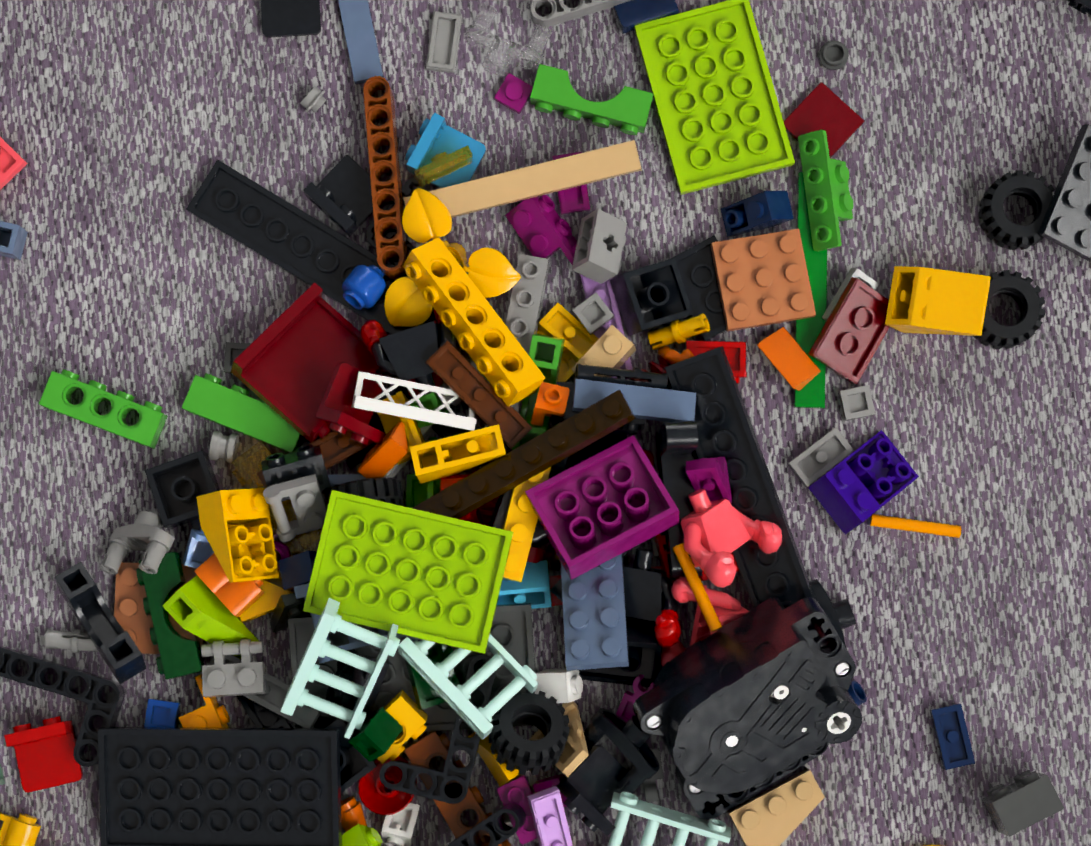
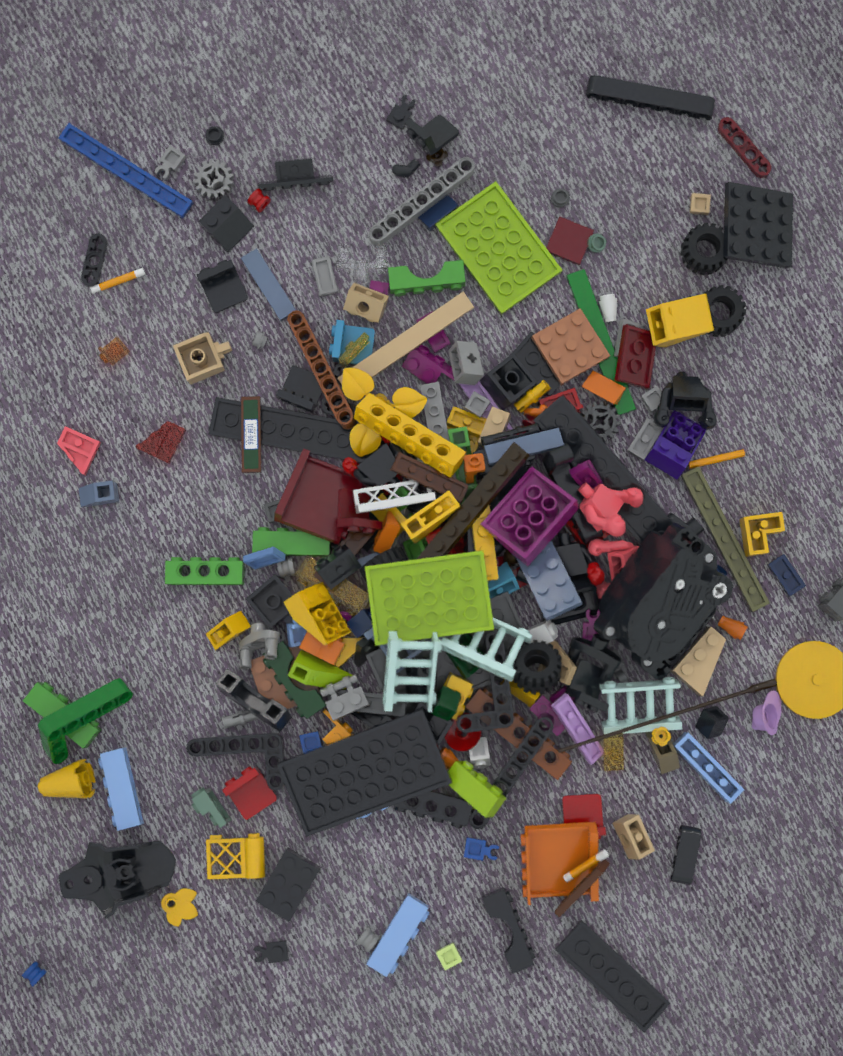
camera: 20 degrees left, 0 degrees up
(95, 37) = (113, 351): none -> clear orange bracket
(105, 505) = (228, 630): none -> yellow slope
(116, 197) = (163, 442): none -> clear red wing
(196, 421) = (264, 558): none -> medium blue tile
(235, 95) = (210, 353): none -> tan hinge
(247, 234) = (251, 434): none -> tile
(306, 502) = (351, 581): light grey plate -> none
(364, 286) = (334, 439): blue head -> none
(503, 106) = (374, 299): none -> tan brick
(697, 588) = (604, 543): light orange bar -> none
(757, 212) = (551, 308): dark blue slope -> none
(782, 399) = (594, 415): none -> dark grey gear
(825, 190) = (586, 279): bright green bracket -> none
(844, 784) = (733, 627): none -> orange cone
(849, 237) = (609, 307): none -> white cone
(861, 141) = (596, 243): none -> sand green plate
(882, 649) = (725, 539): none -> olive plate
(903, 414) = (686, 394): none -> black torso
(932, 651) = (755, 530): none -> yellow brick
(1036, 140) = (700, 204): none -> tan plate

